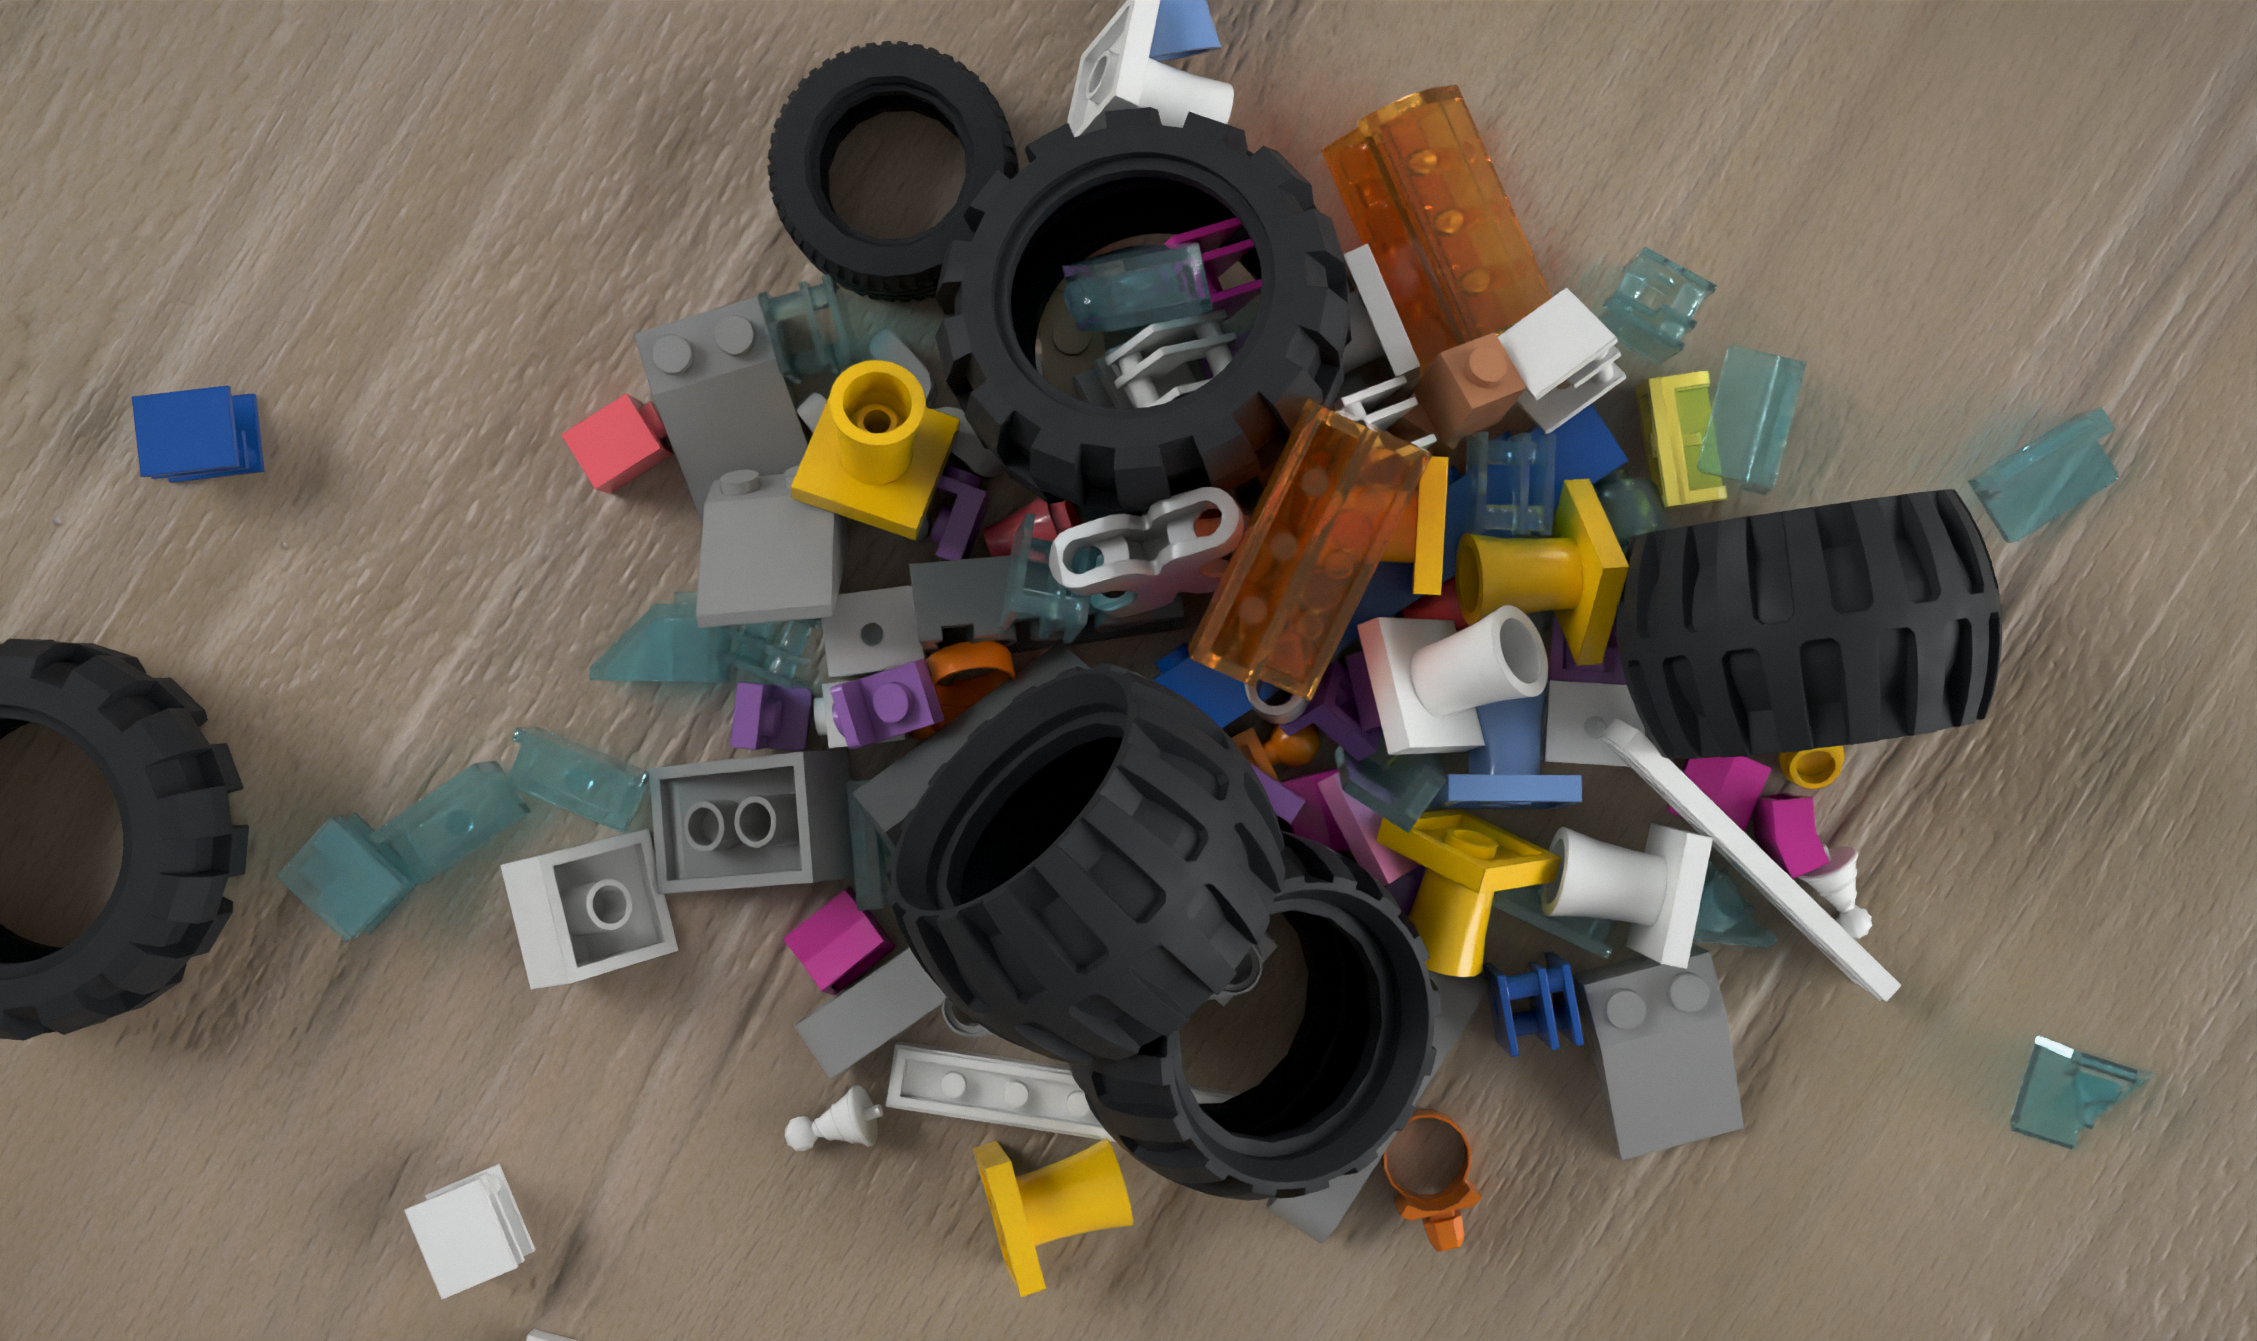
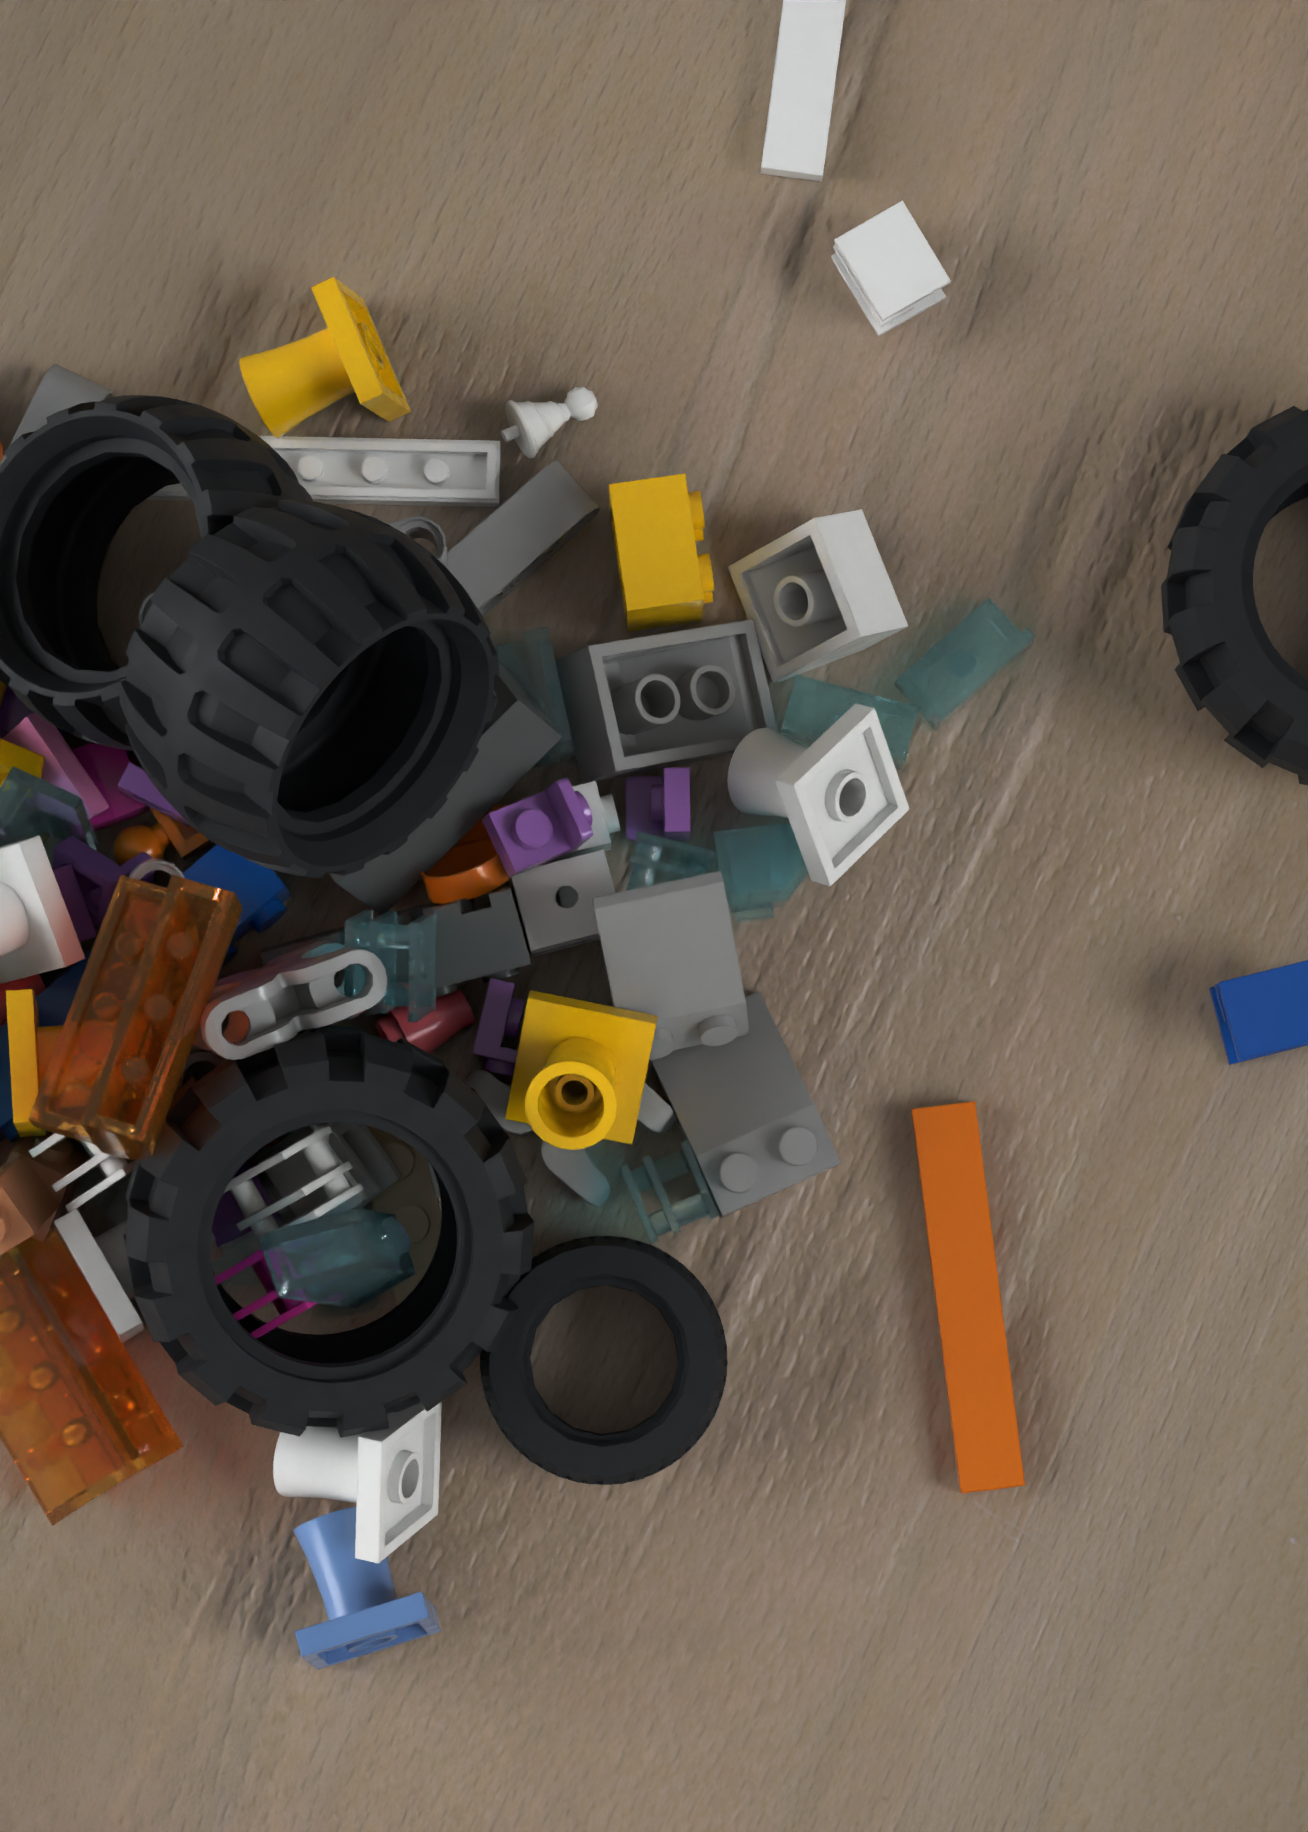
camera: 170 degrees right, 5 degrees down
(348, 877) = (1057, 595): clear light blue piece -> none
(538, 198) = (967, 1297): none -> orange tile
(587, 701) = (834, 793): none -> white plant
(619, 443) = (847, 1059): coral brick -> none
(735, 971) = (656, 552): none -> yellow brick
(839, 942) = (567, 596): dark pink piece -> none

